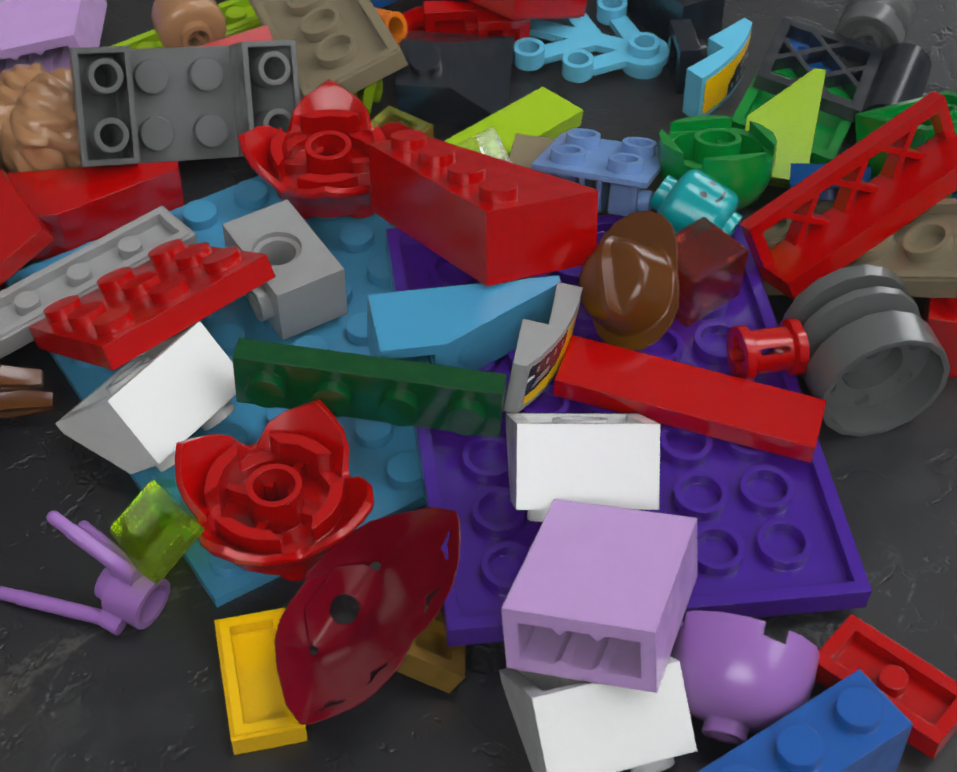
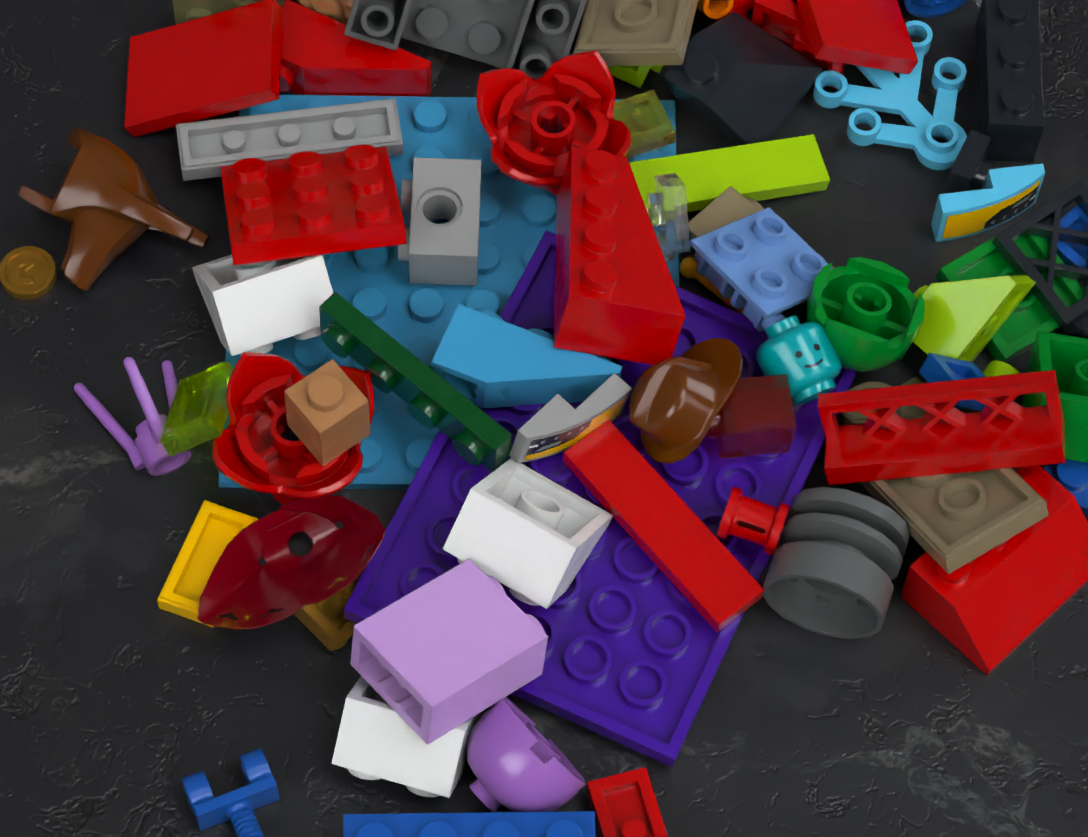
camera: 30 degrees right, 15 degrees up
(309, 442) = (327, 412): none -> medium nougat brick

